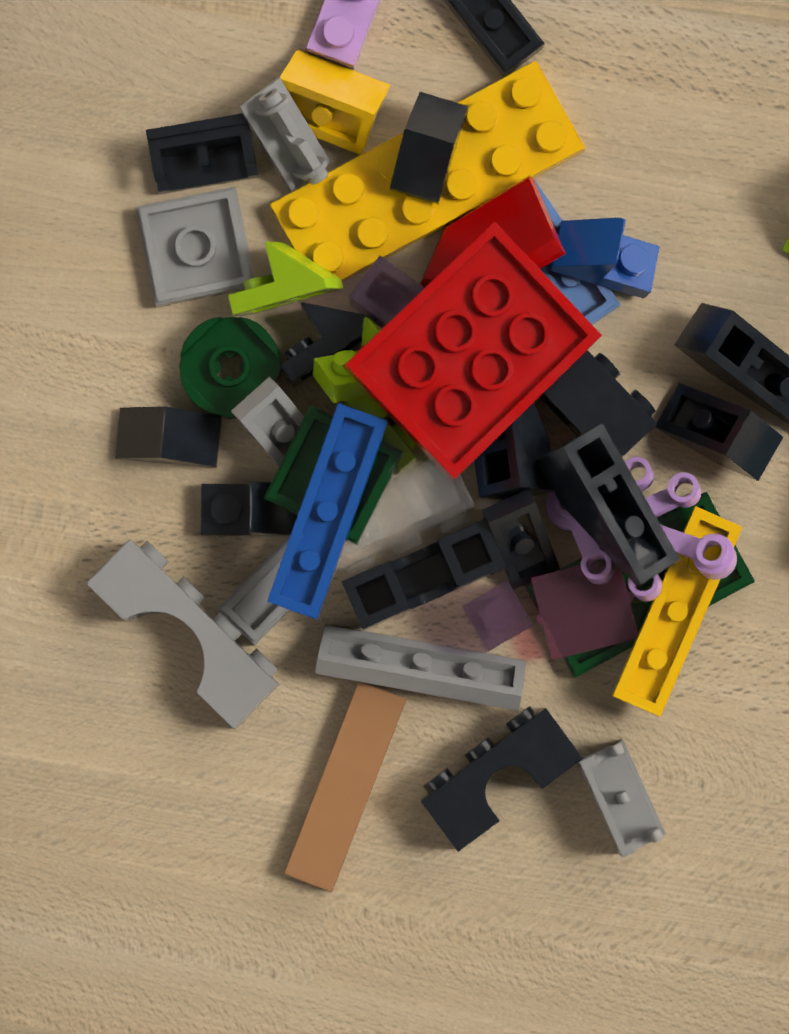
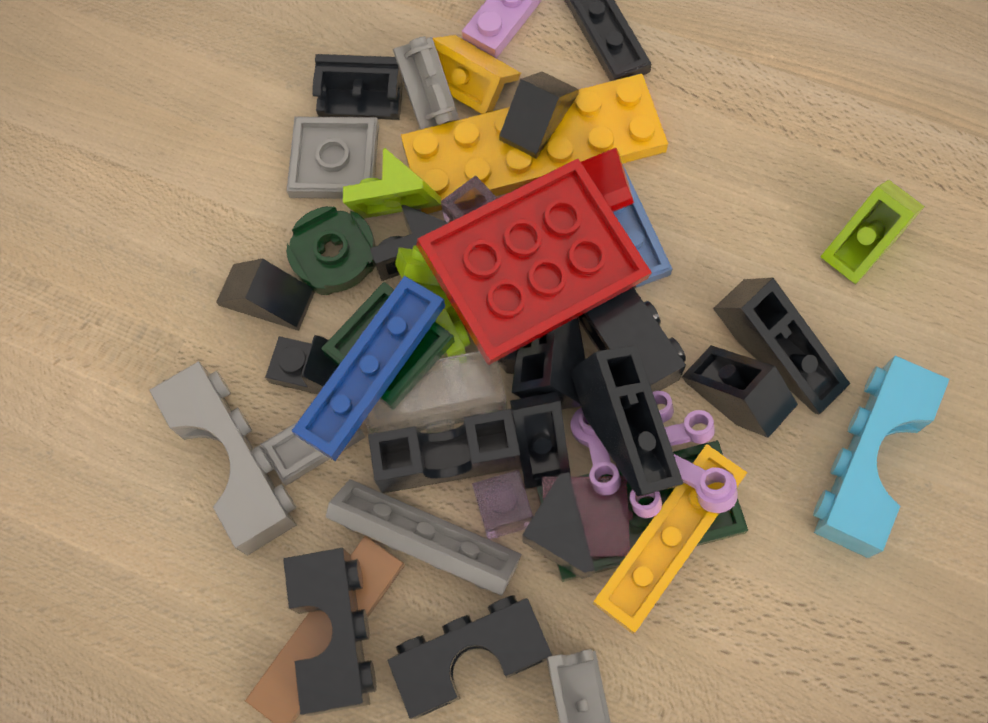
camera: 15 degrees right, 15 degrees down
(270, 419) = (346, 285): light grey slope -> none
(377, 828) = (340, 674): none -> black arch
(562, 631) = (559, 530): none -> black slope
(605, 256) = (660, 222): blue slope -> none

